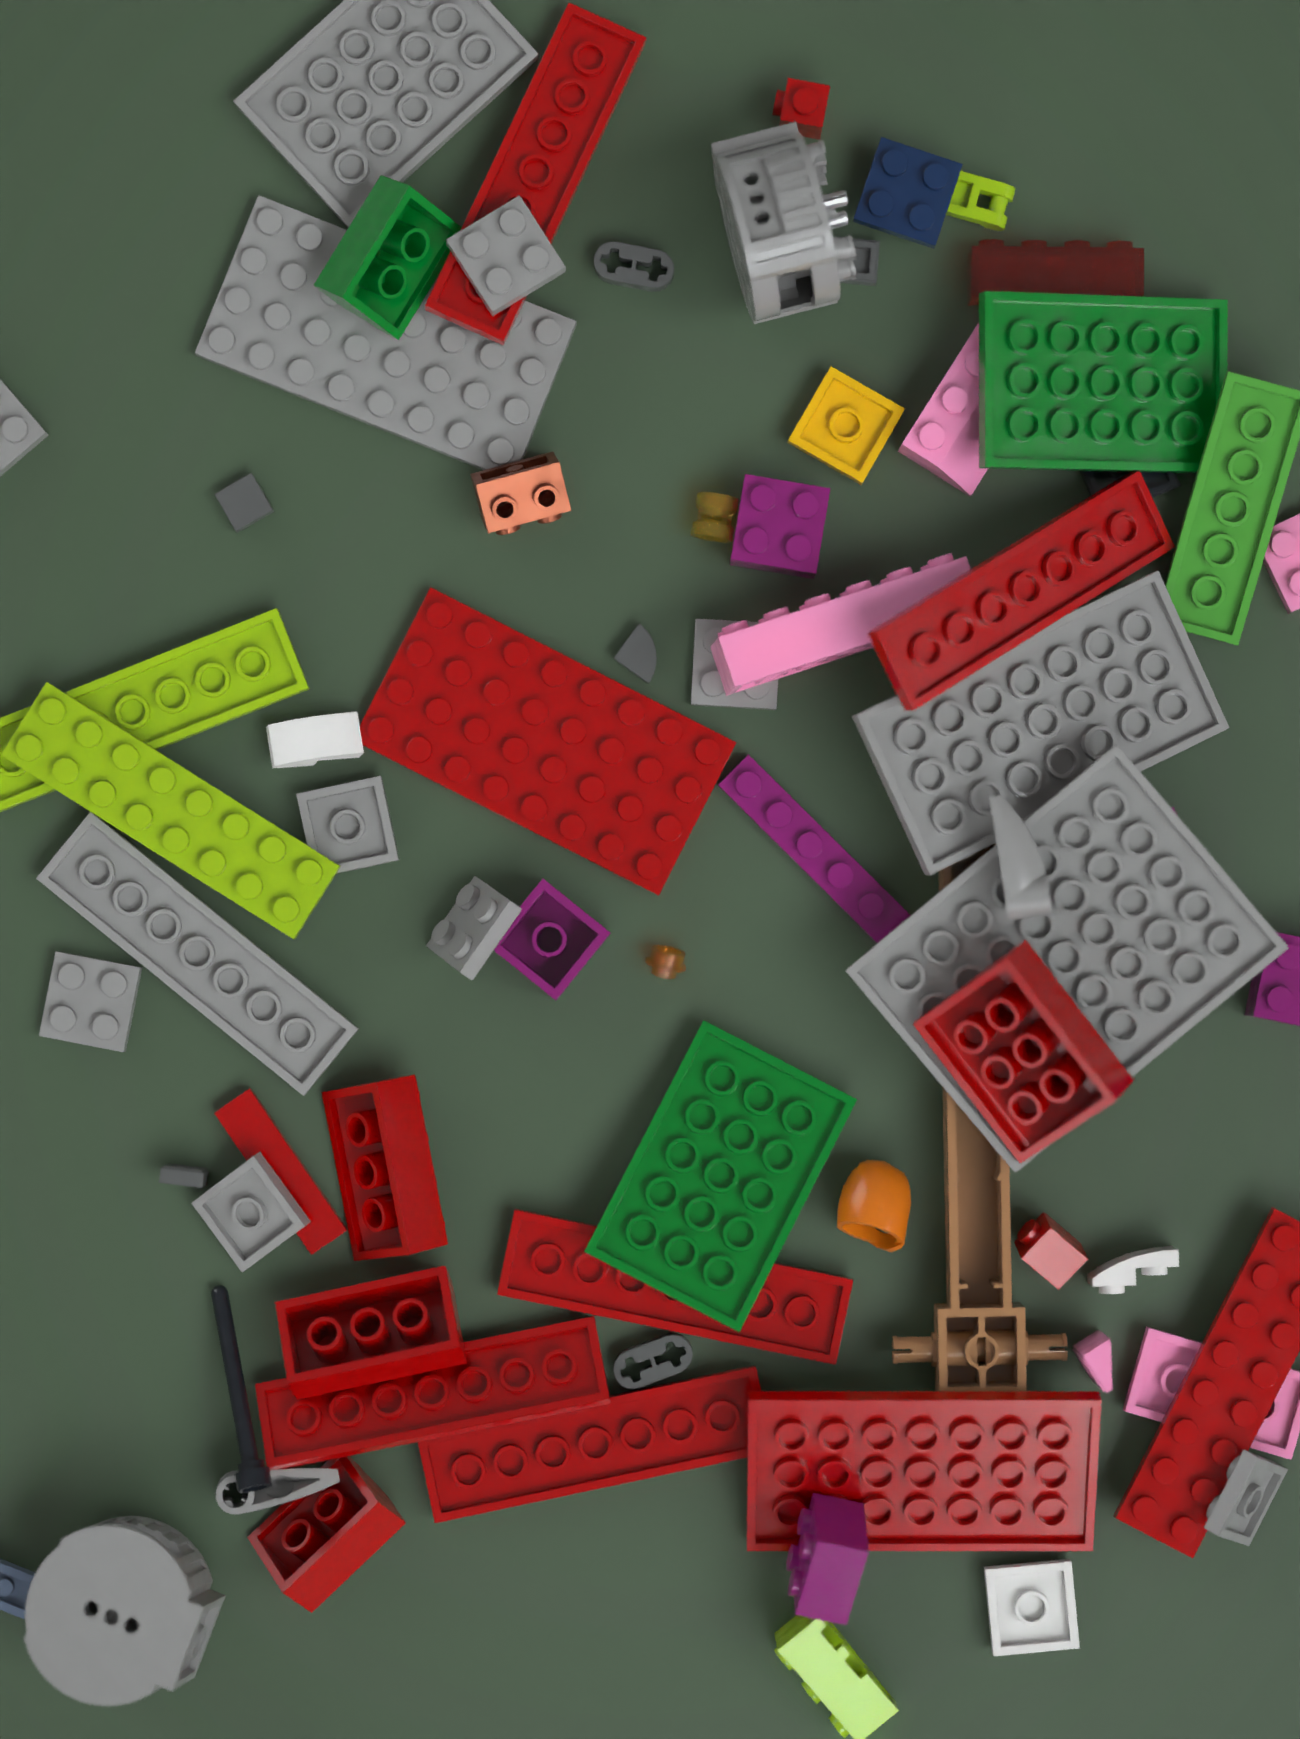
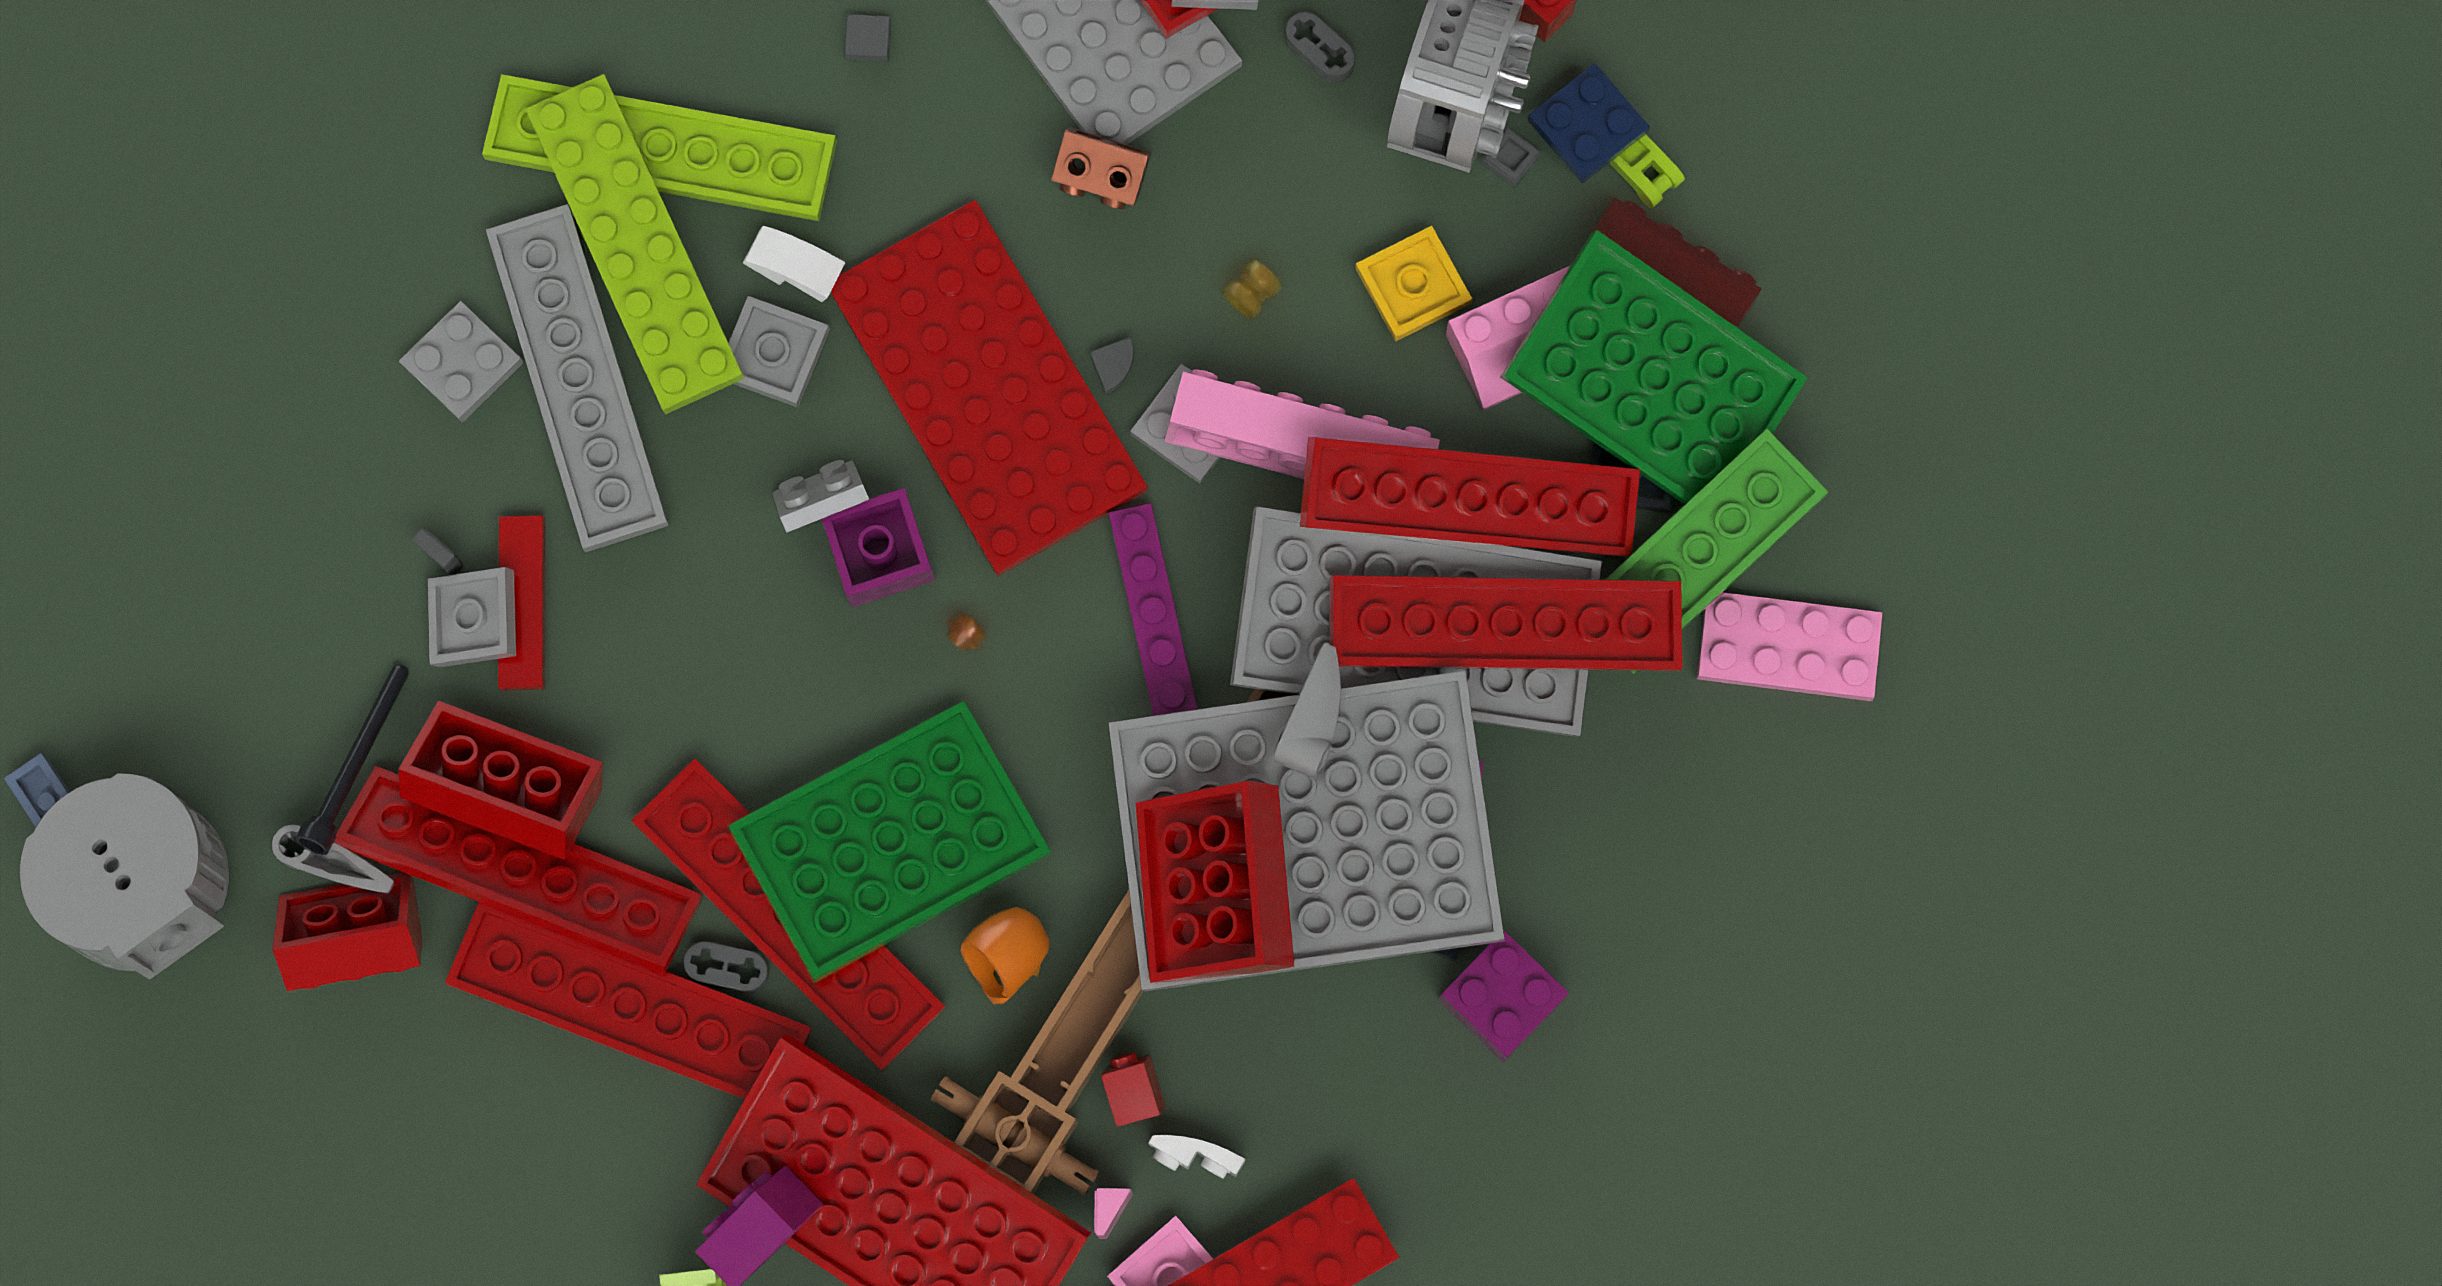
camera: 35 degrees right, 10 degrees down
(385, 1168) = (610, 653): red slope -> none
(780, 526) = (1301, 329): magenta brick -> none
(1117, 677) = (1506, 623): none -> red plate

